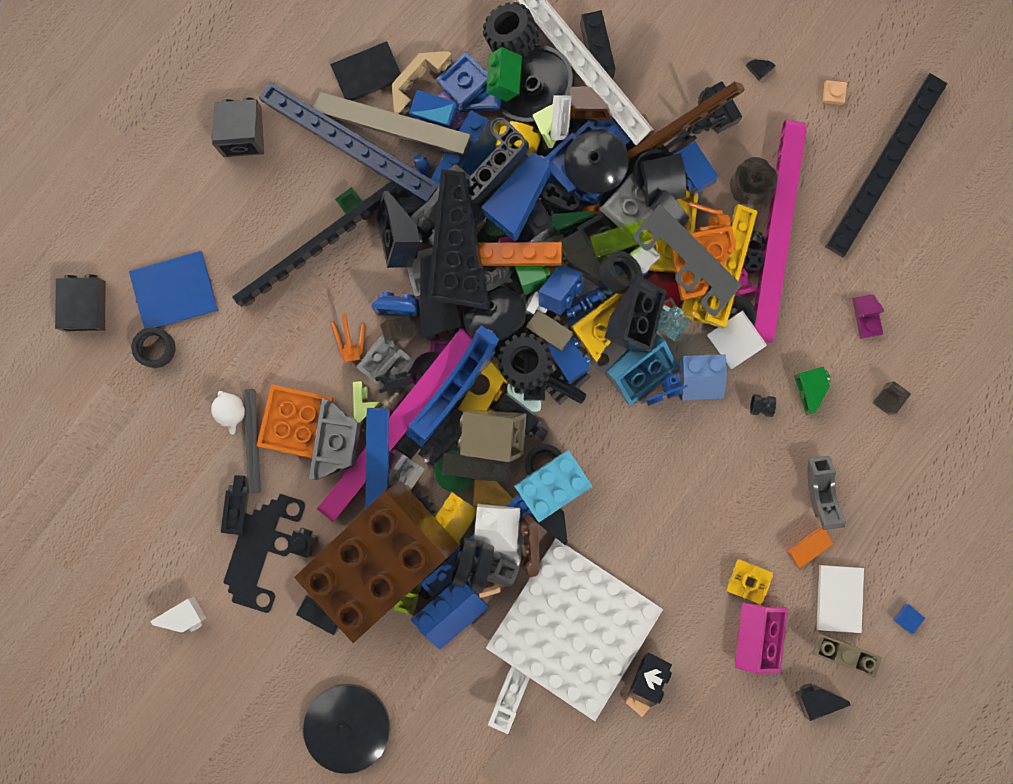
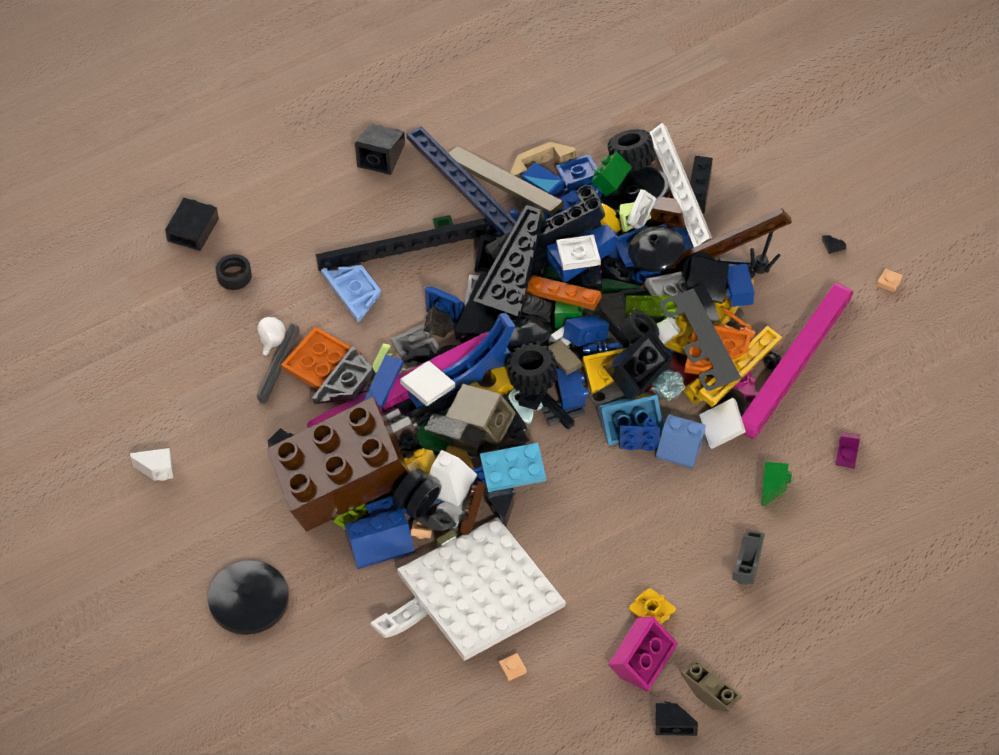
camera: 25 degrees right, 30 degrees down
(173, 290) = (270, 241): blue piece -> none
(235, 507) = (240, 403): black hinge -> none
(252, 550) = (236, 441): black piece -> none
(290, 319) = (353, 288): none -> light blue wing
(315, 615) = (271, 501): black brick -> none
(349, 352) = (391, 327): orange plant -> none
(366, 71) = (501, 144): black tile -> none
(397, 233) = (471, 253): black slope -> none
(423, 483) = (409, 446): none -> black plate
(425, 425) = (427, 383): none -> white tile
(517, 588) = (445, 538): none -> olive tile
(521, 206) = (578, 252): none -> white tile
(650, 680) = (527, 645): black brick -> none
(728, 109) = (787, 263): black brick -> none
(755, 258) = (761, 369): black wheel -> none
(762, 174) = (788, 315): clear smoke brick -> none
(763, 405) = (724, 480): black wheel -> none
(810, 547) = (718, 601): orange slope -> none
(840, 599) = (729, 650): white tile -> none
(886, 165) = (912, 346): black plate -> none
(891, 398) = (843, 514): clear smoke panel -> none
(909, 619) = (784, 689): blue tile -> none

